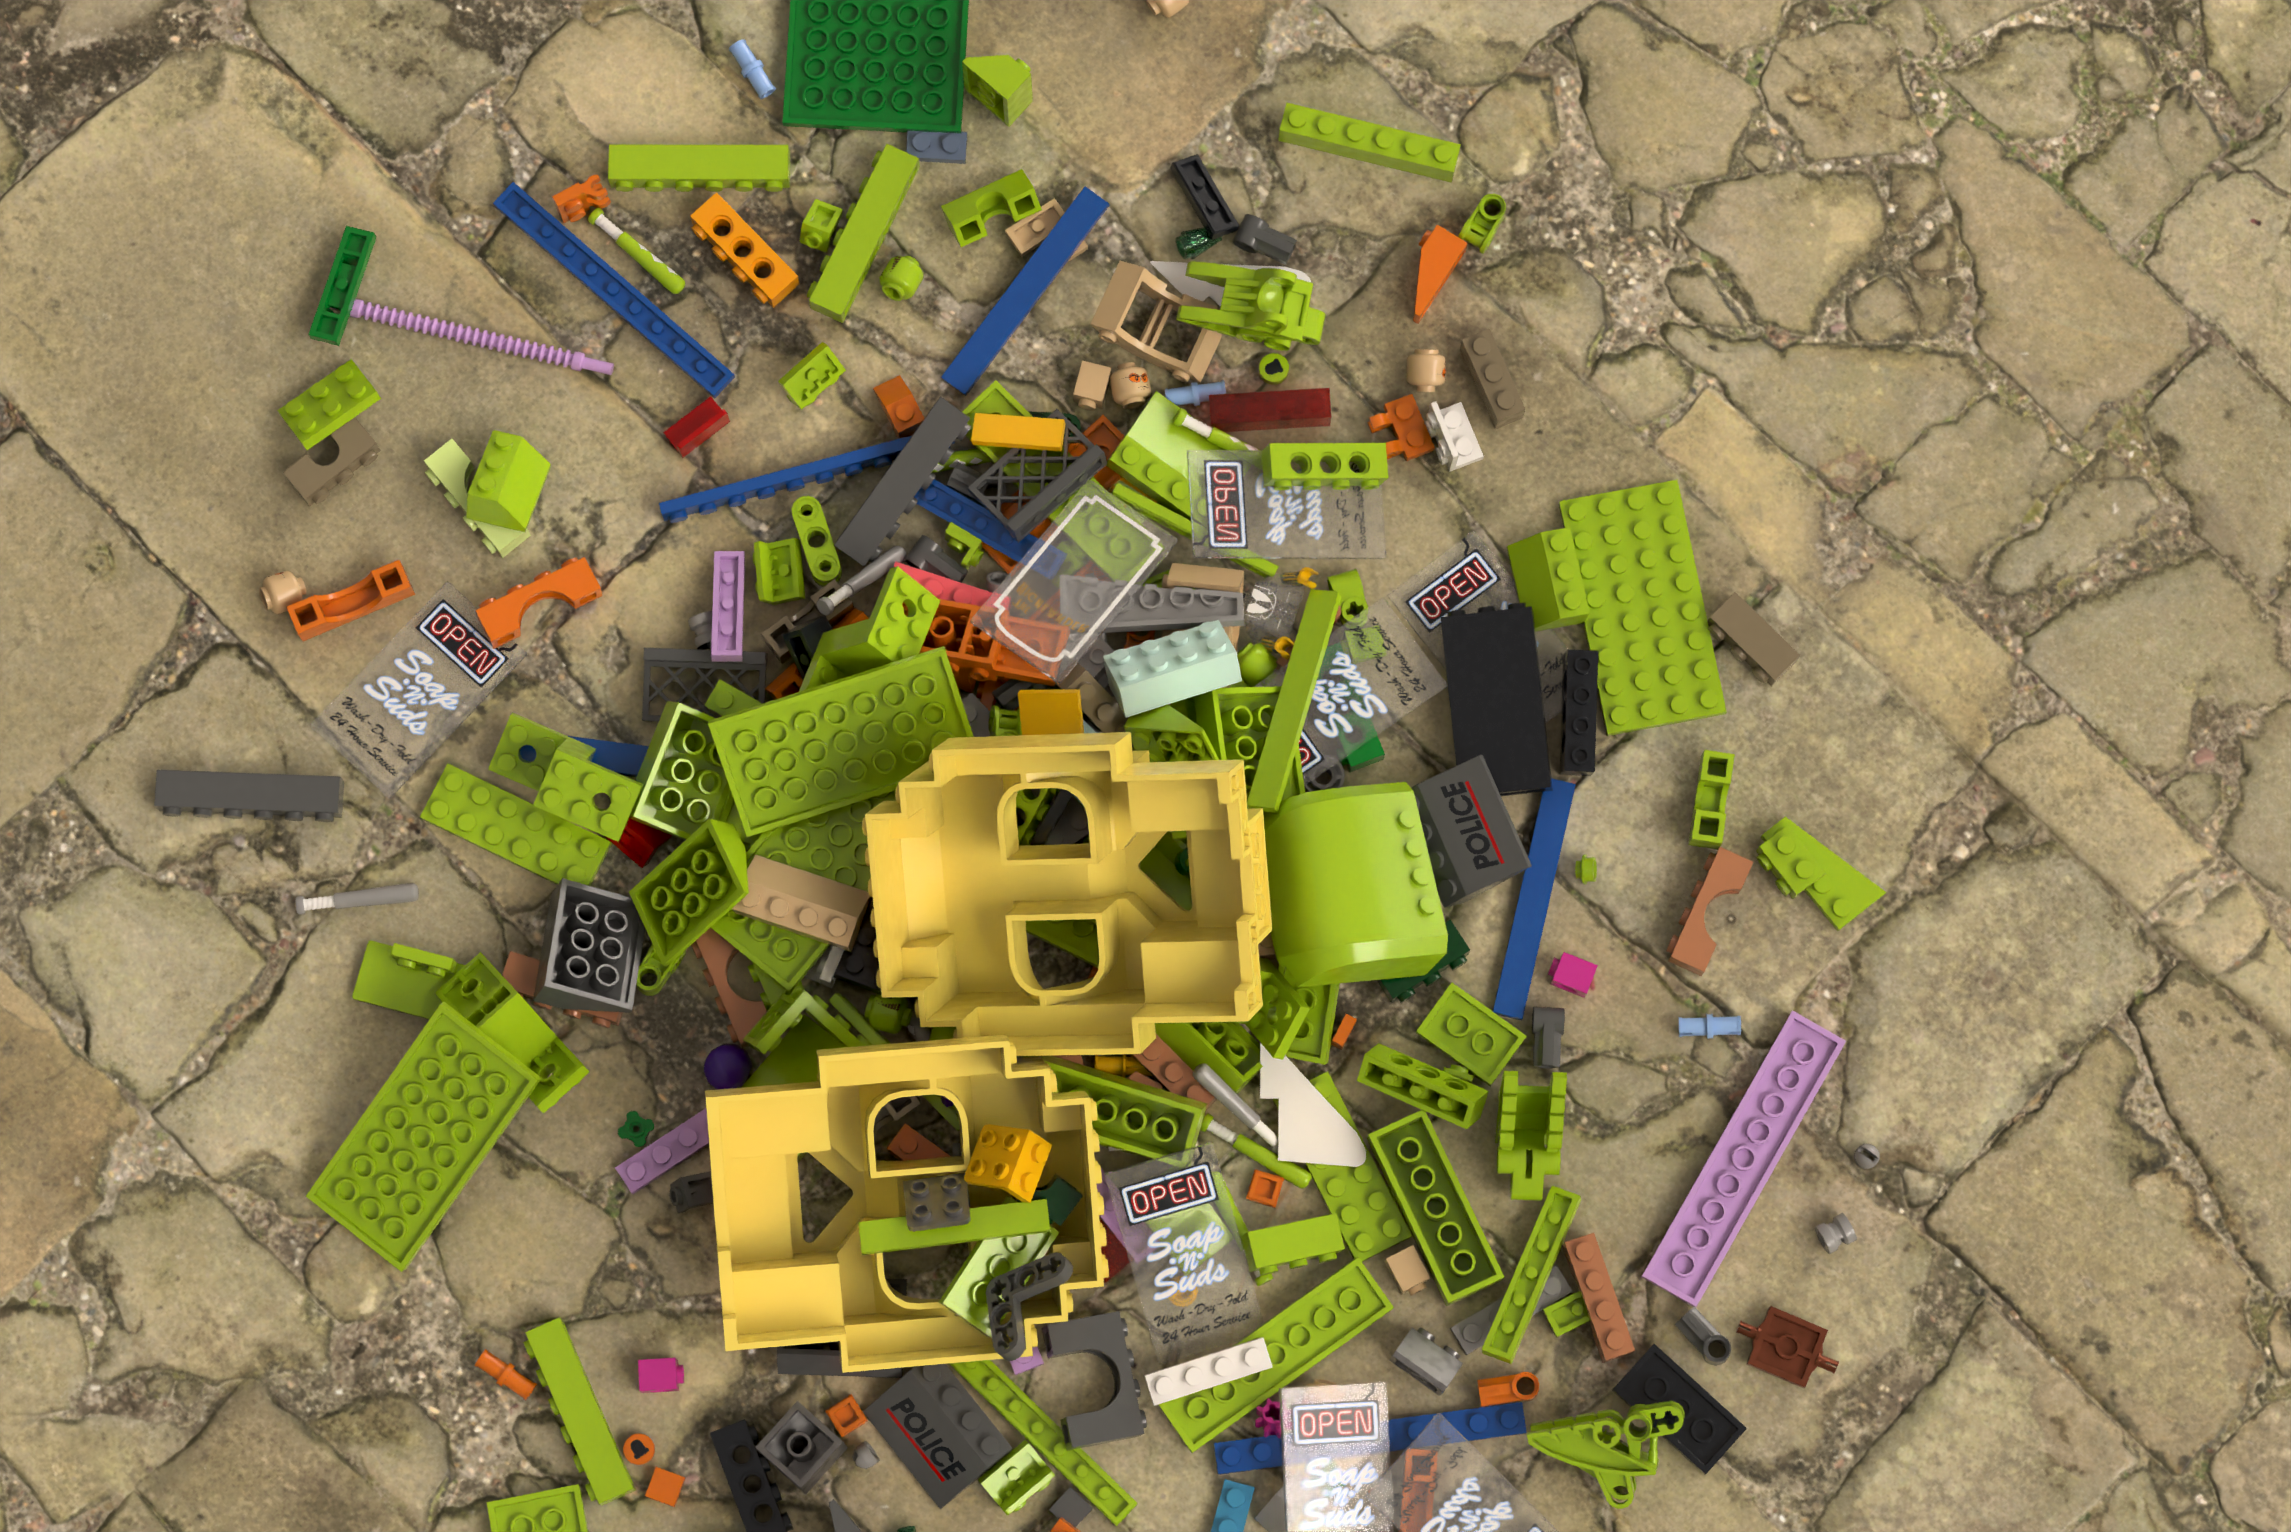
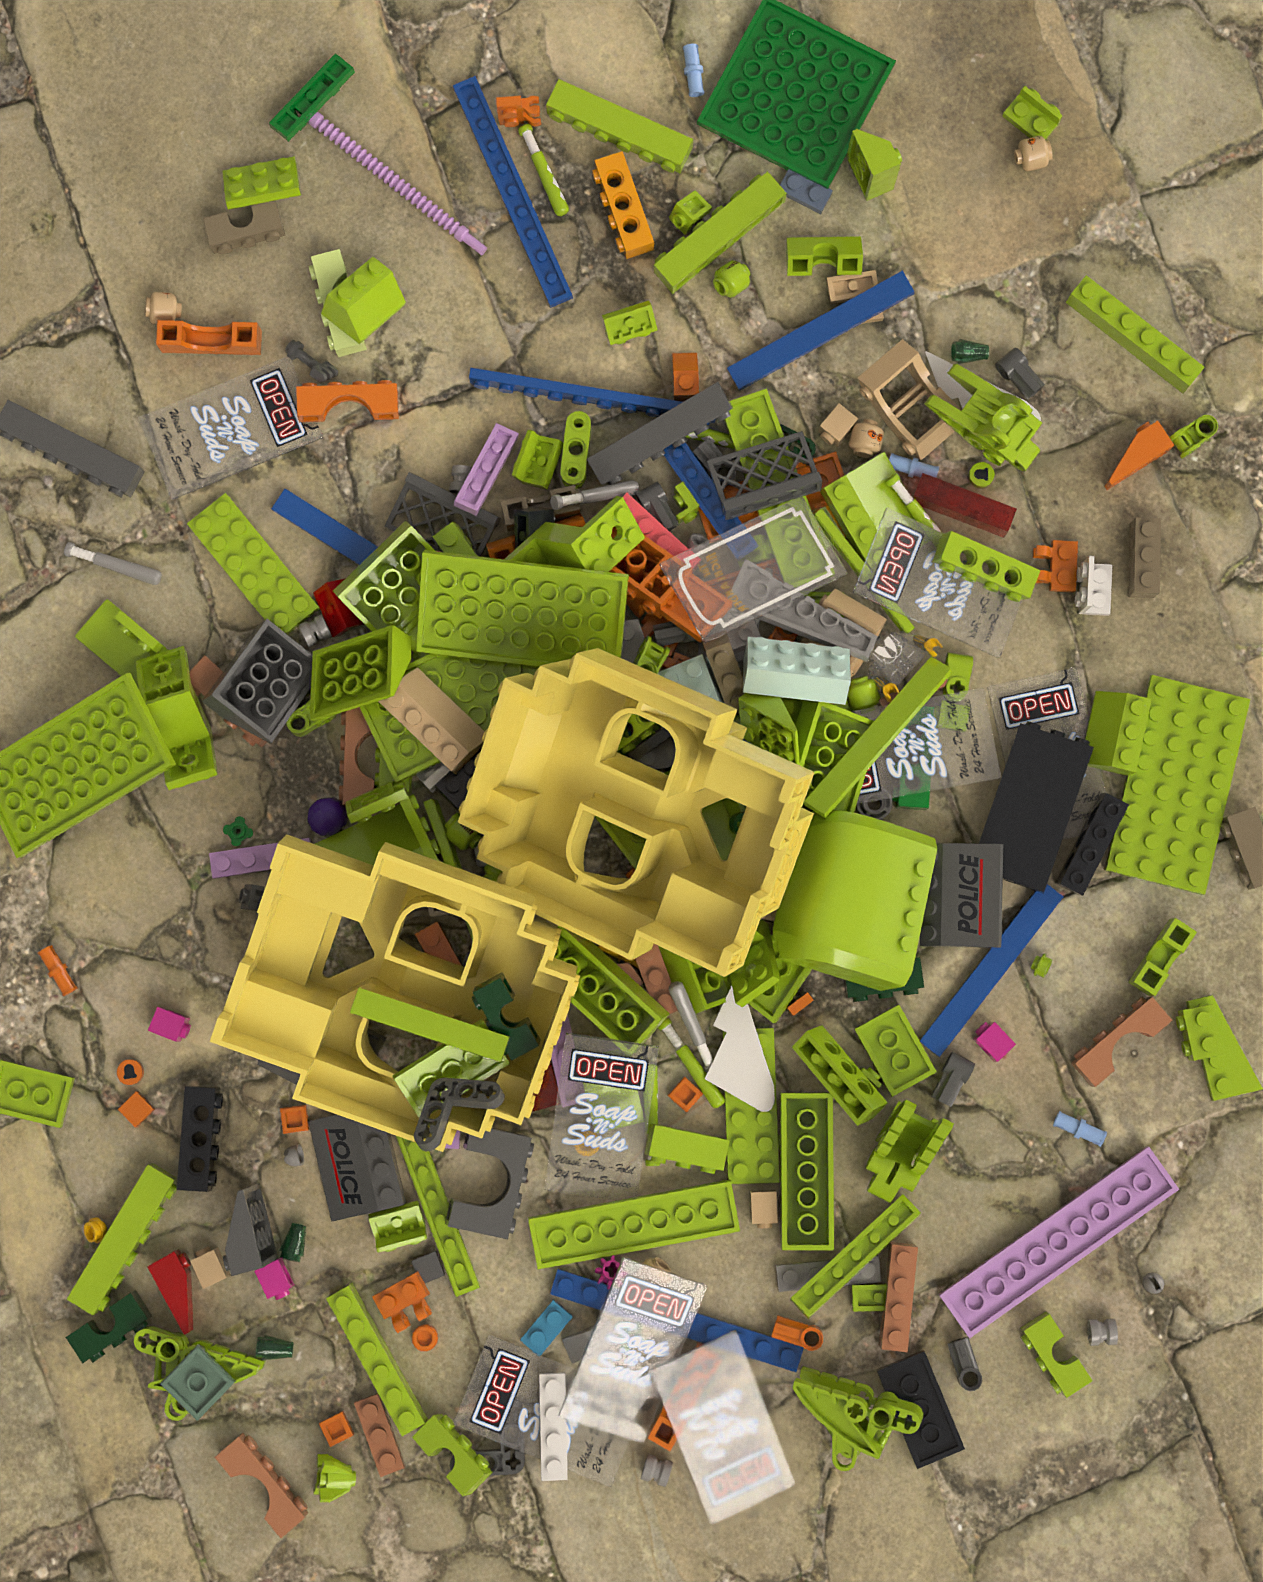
camera: 30 degrees right, 5 degrees up
(492, 583) = (319, 372): none -> dark grey hinge
(565, 777) = (303, 543): lime bracket -> none
(580, 1412) = (98, 1024): lime brick -> none
(619, 869) = (315, 630): none -> light grey wheel
(696, 427) = (527, 323): red panel -> none
(801, 1447) = (248, 1129): flat silver slope -> none
(936, 1202) = (425, 1000): flat silver bracket -> none
(1008, 1160) = (493, 994): yellow bracket -> none
(1018, 432) = (764, 435): yellow tile -> none
(1050, 711) = (687, 664): yellow tile -> none
(1204, 197) = (989, 320): black tile -> none
(1208, 1371) = (577, 1215): white plate -> none
(1426, 369) = (1097, 528): tan head -> none
(1426, 1360) = (746, 1284): flat silver slope -> none
(1772, 1270) = (1067, 1375): none -> lime arch
(1787, 1347) = (1024, 1401): copper plate -> none

